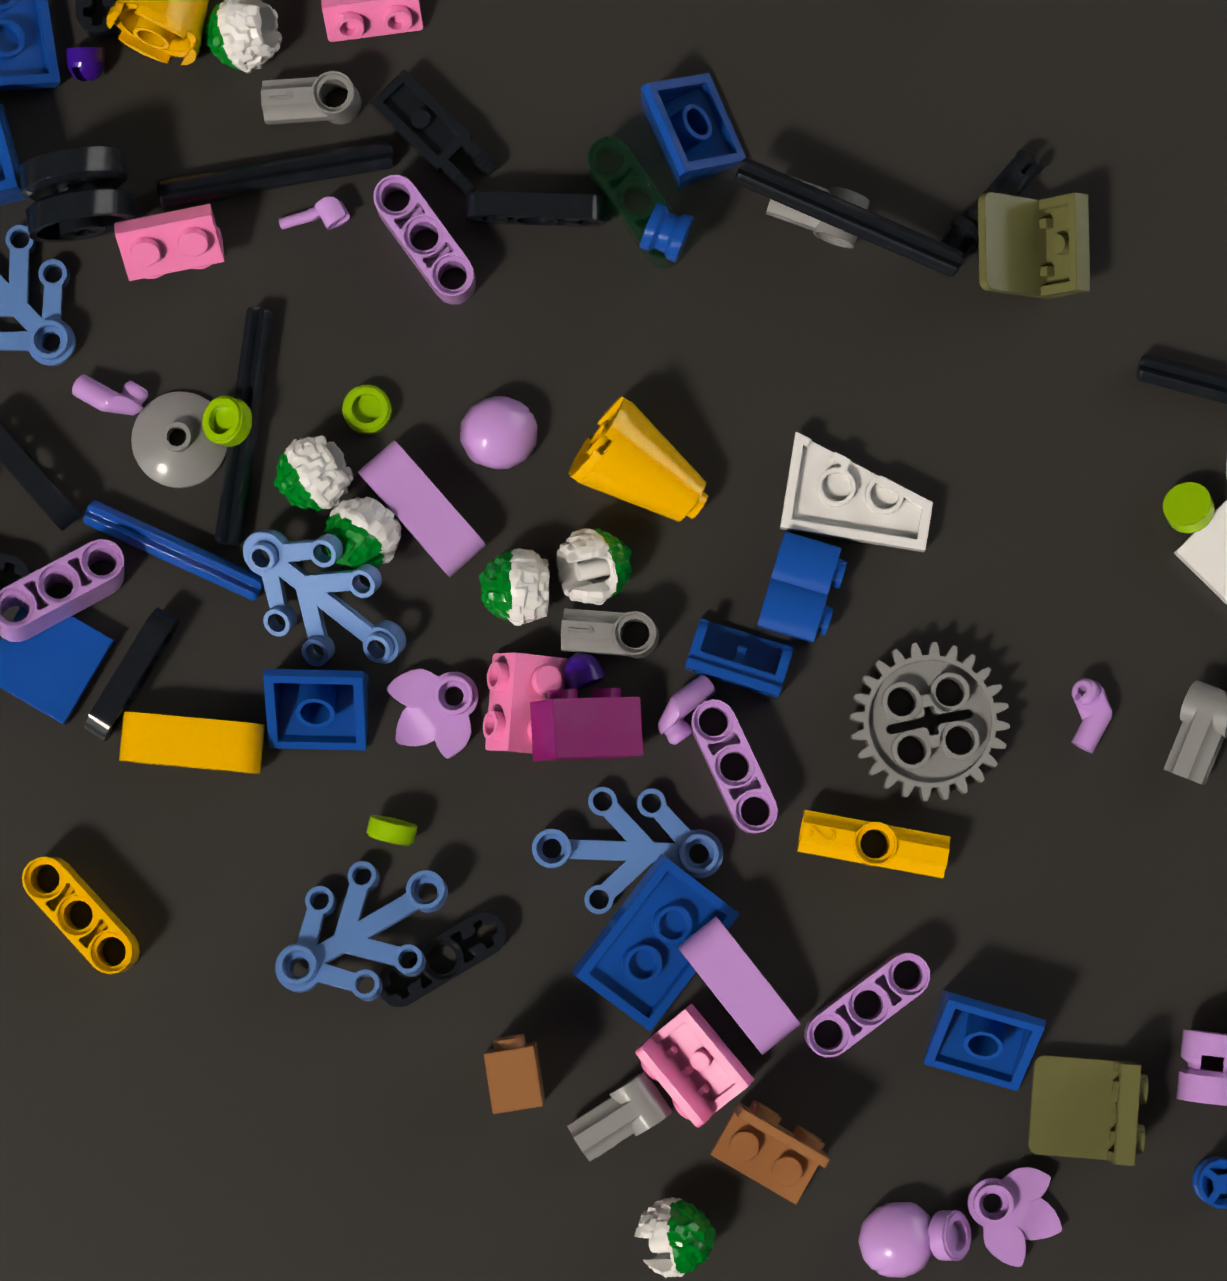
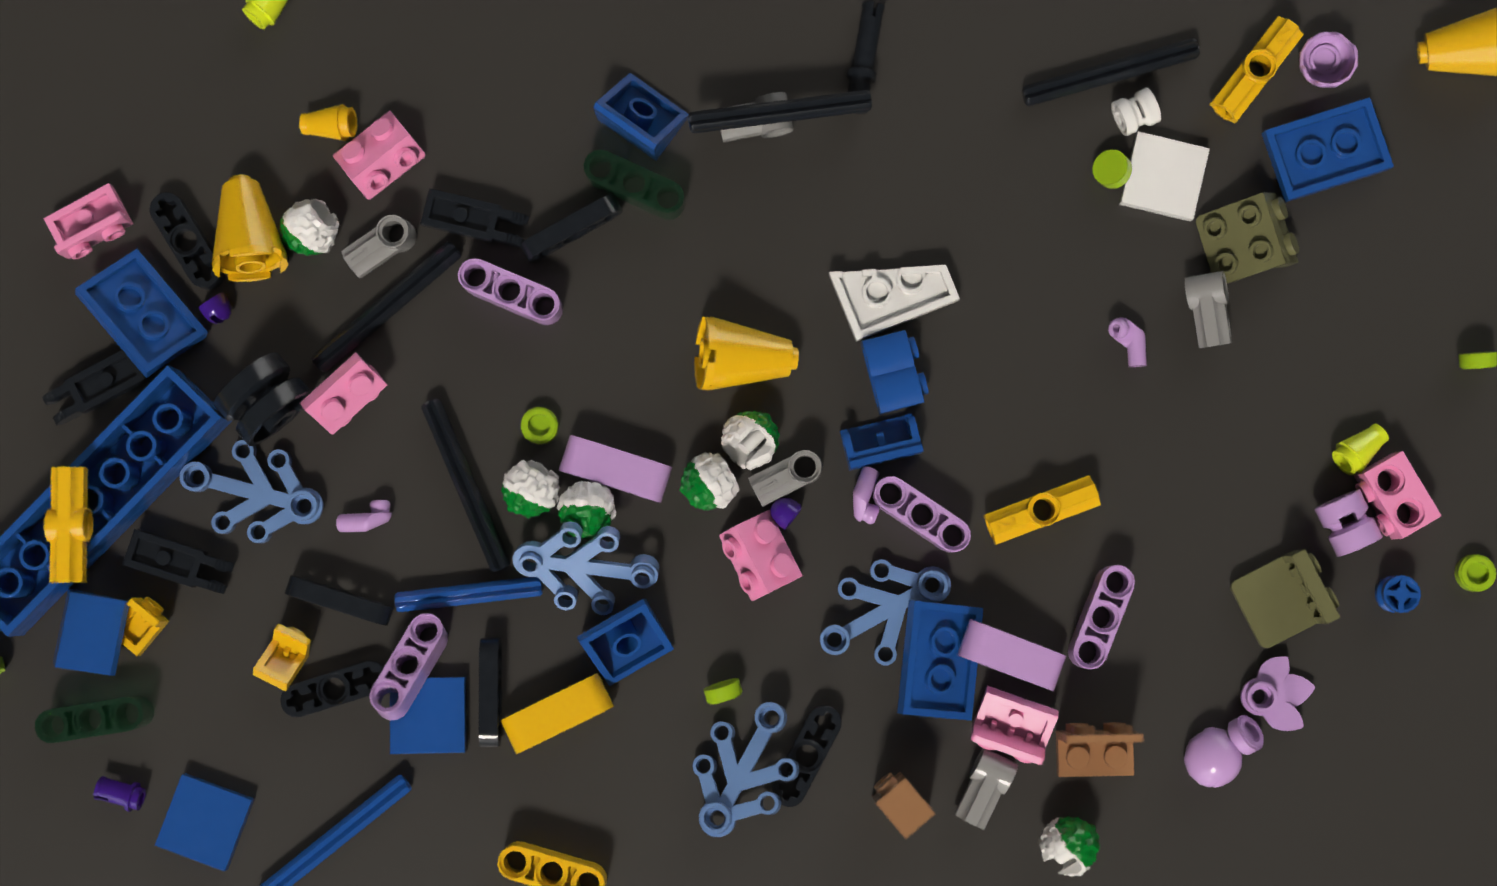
camera: 30 degrees left, 0 degrees up
(169, 464) = (447, 520): light grey dish -> none
(227, 421) = (452, 488): lime tile -> none
(328, 209) = (435, 310): lavender hand -> none
(427, 712) = (700, 600): lavender plate -> none
(498, 432) = (635, 389): lavender hair -> none
(586, 727) = (811, 547): magenta brick -> none
(666, 232) = (667, 192): blue wheel -> none
(938, 765) = (1007, 384): light grey gear -> none
(982, 1040) = (1189, 594): blue slope -> none
(1034, 245) = (911, 57): olive bracket -> none

